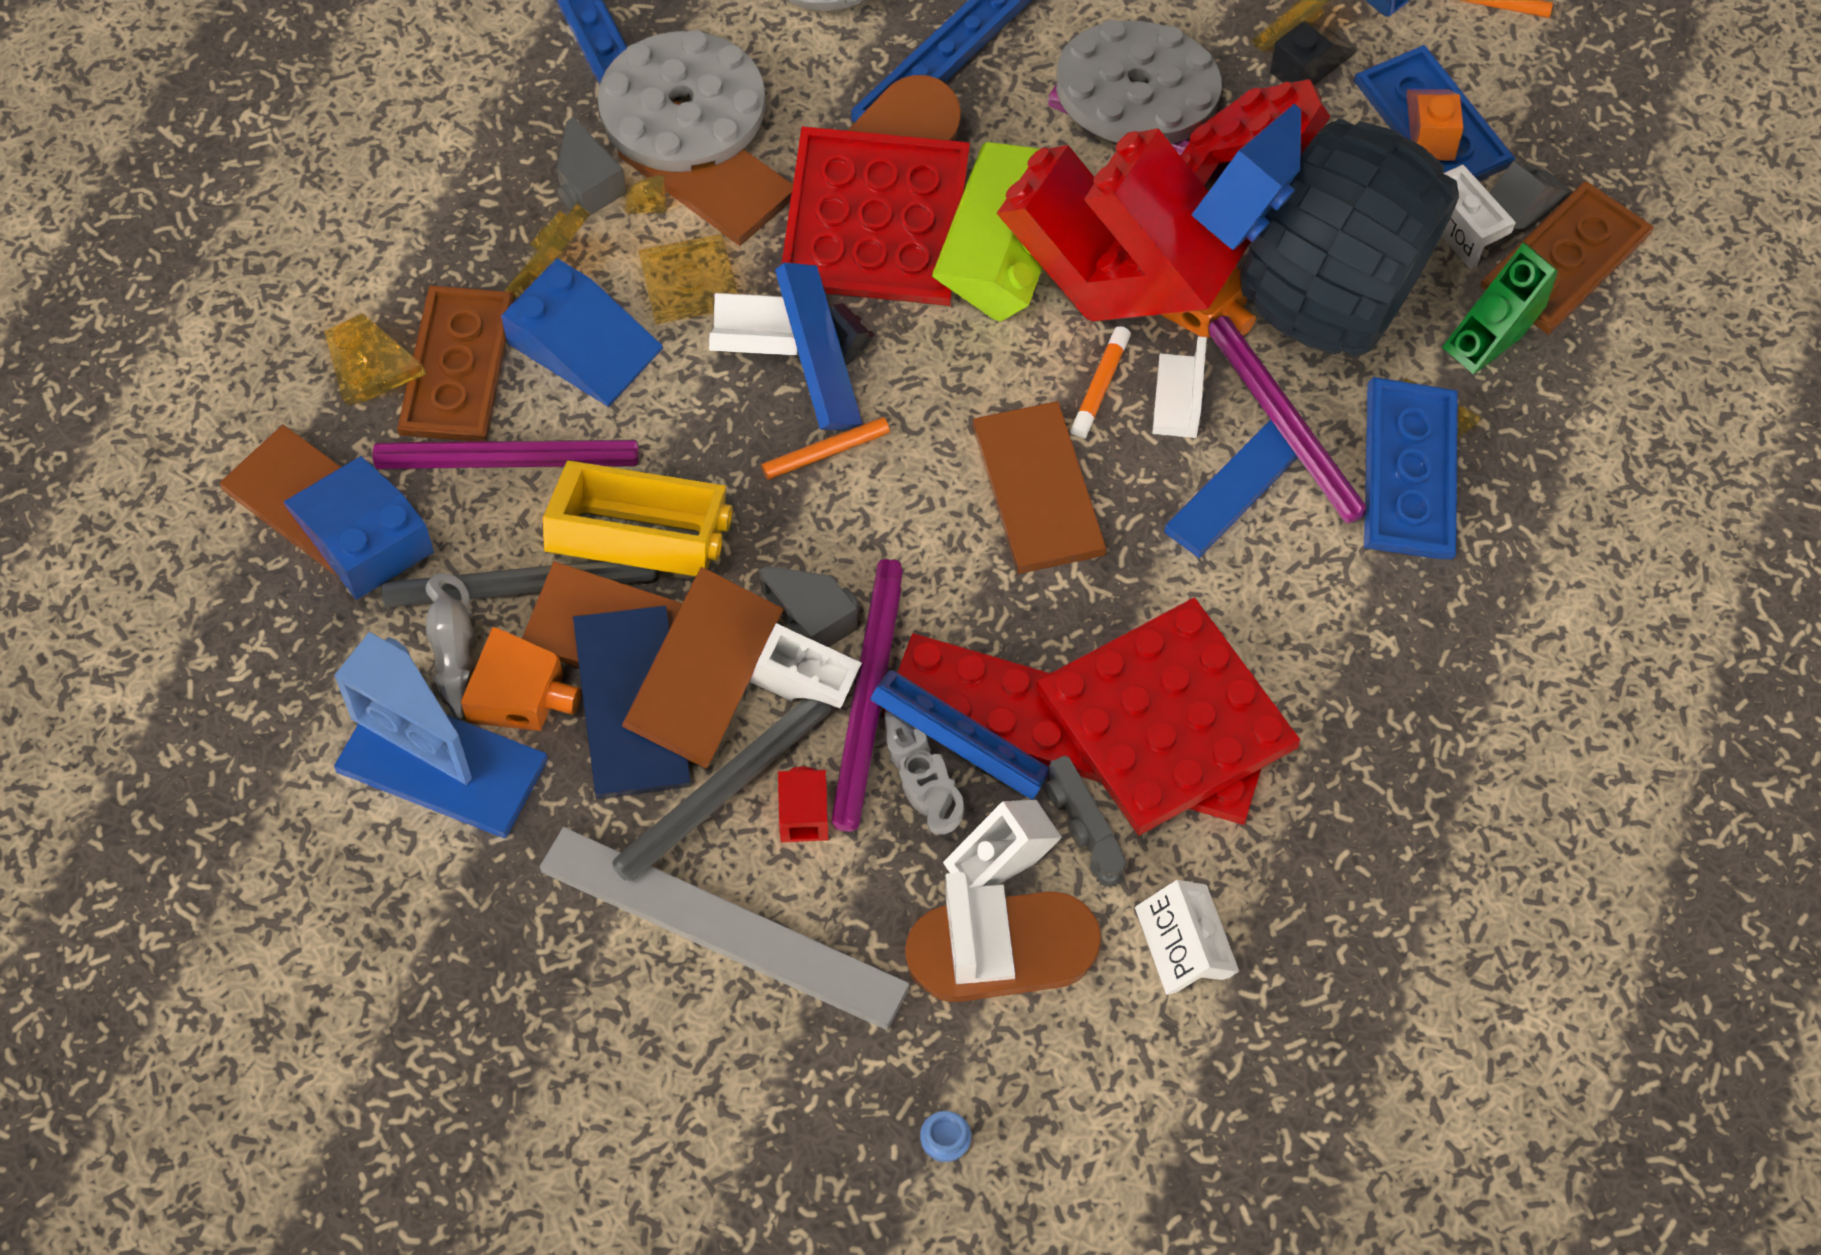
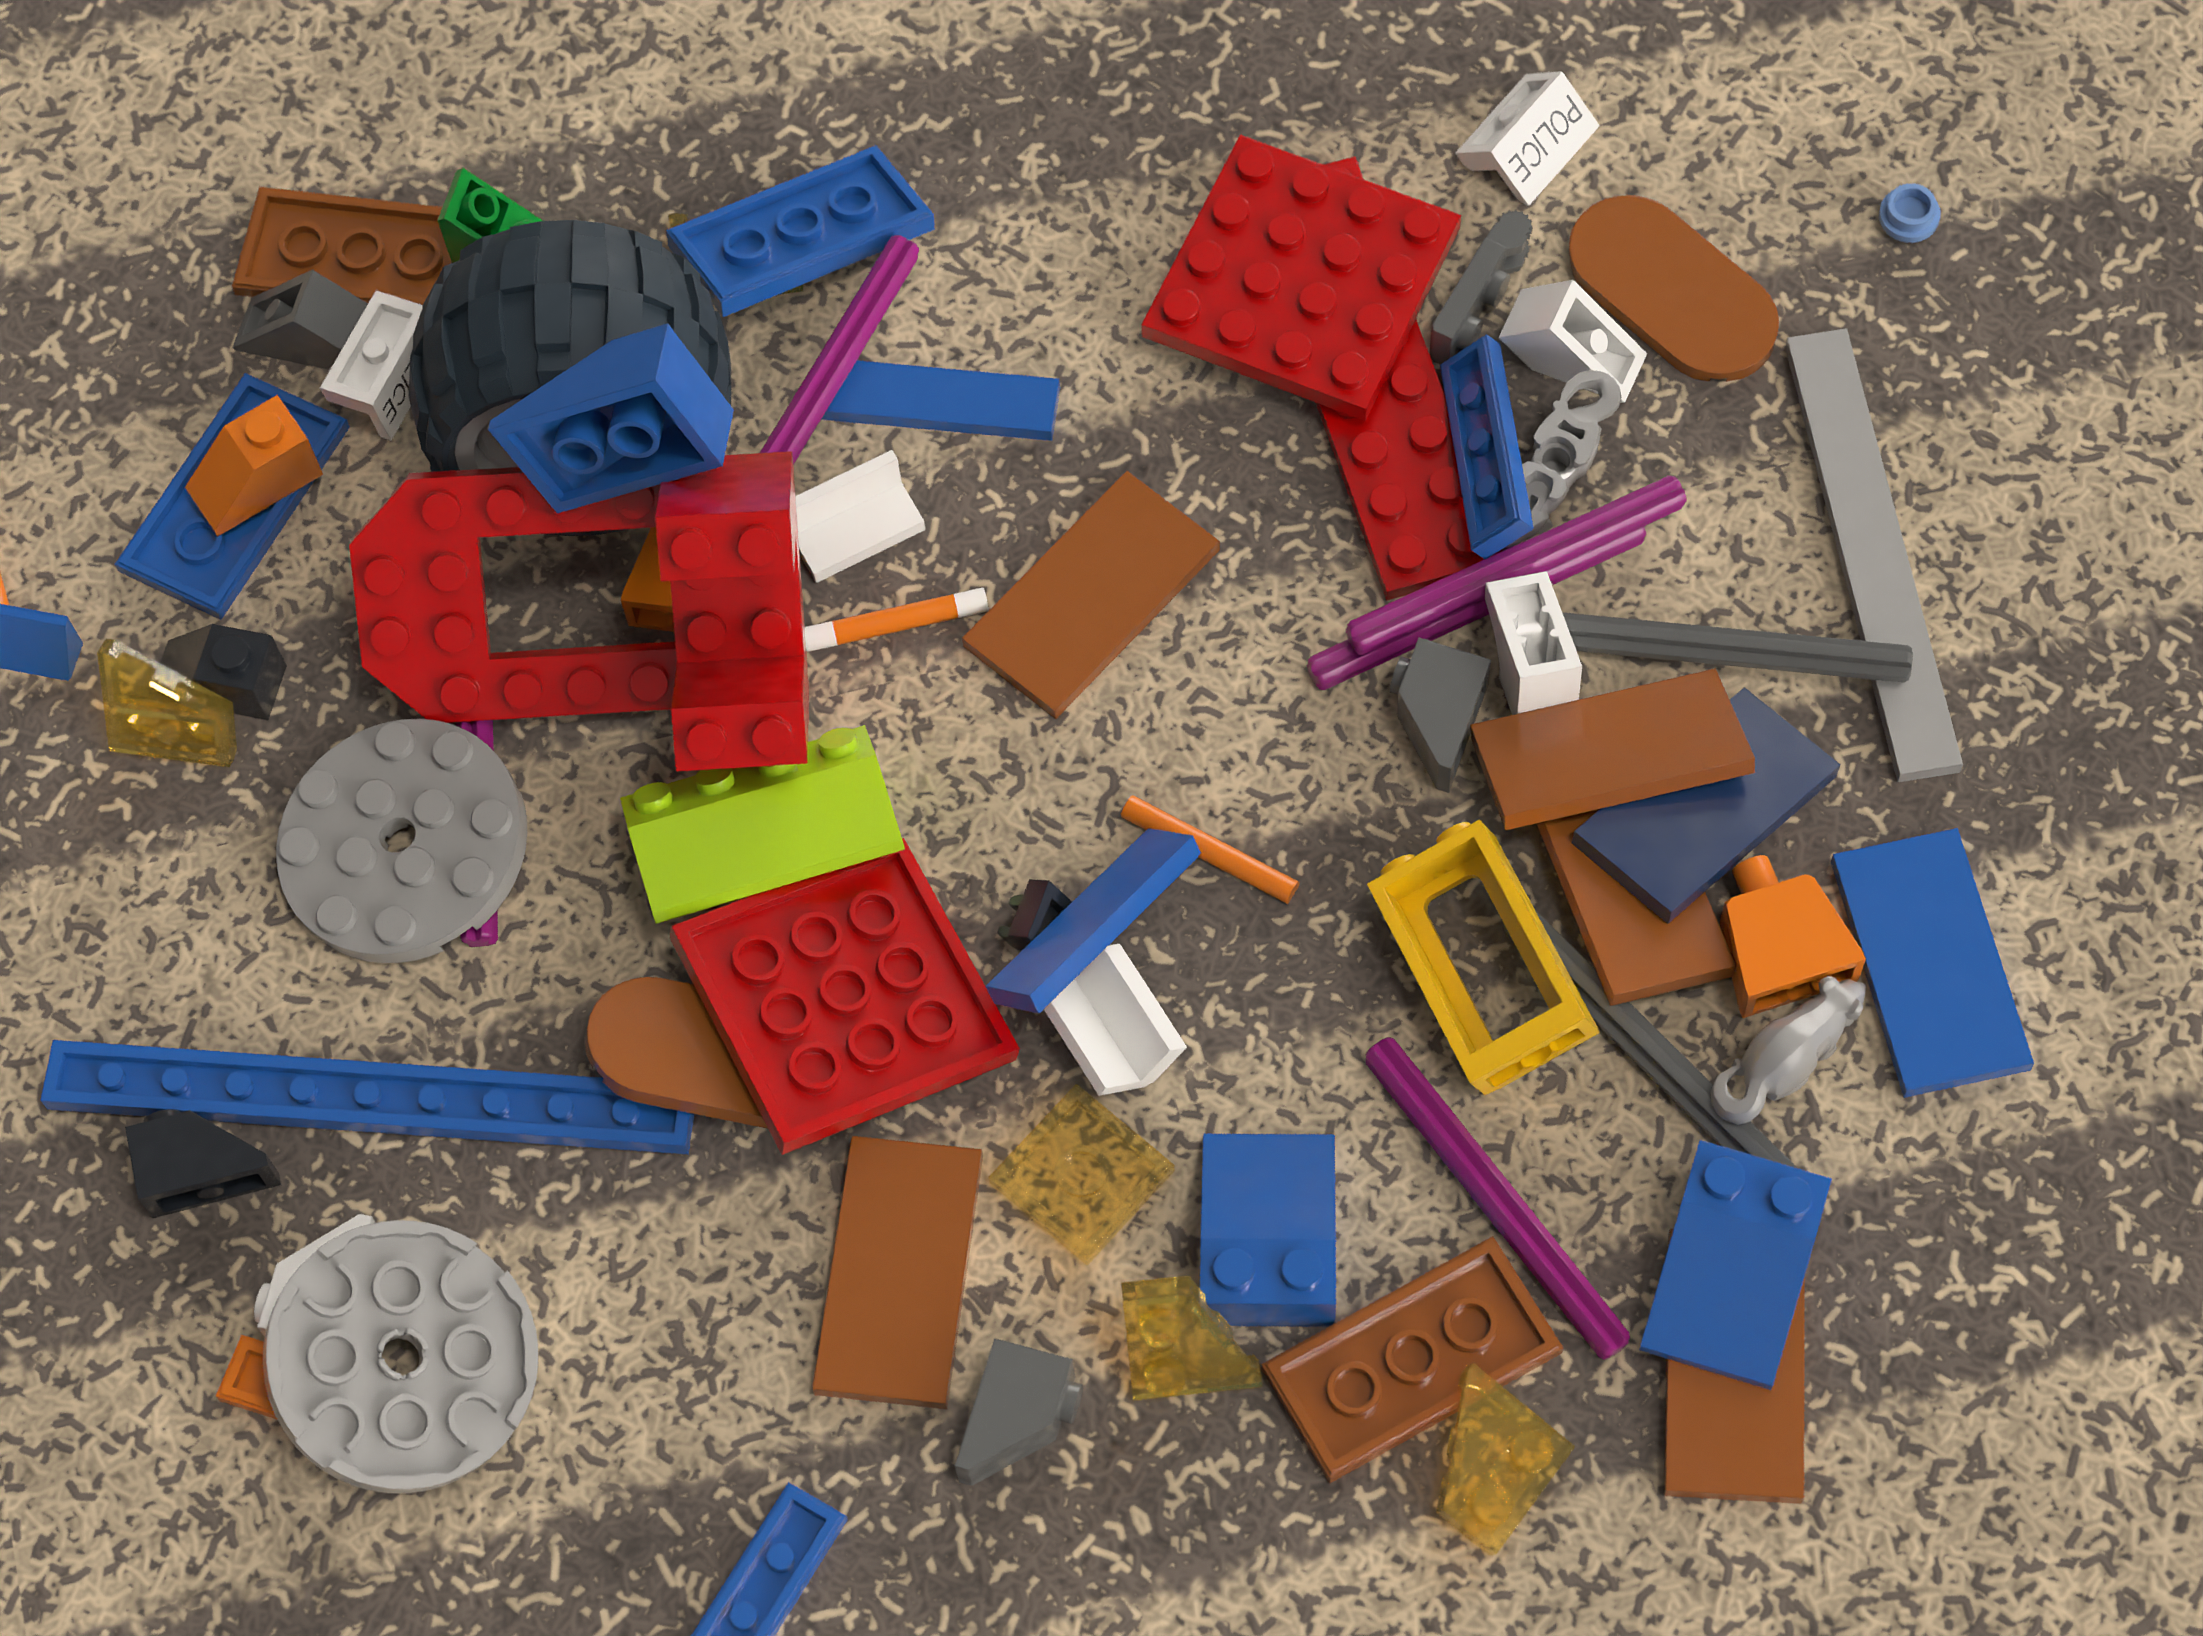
camera: 120 degrees left, 5 degrees up
(396, 703) = (1935, 1016): medium blue slope -> none
(647, 196) = (991, 1296): clear yellow tile -> none
(673, 137) = (831, 1435): light grey plate -> none
(803, 805) = (1682, 554): red brick -> none
(978, 931) = (1688, 302): white panel -> none

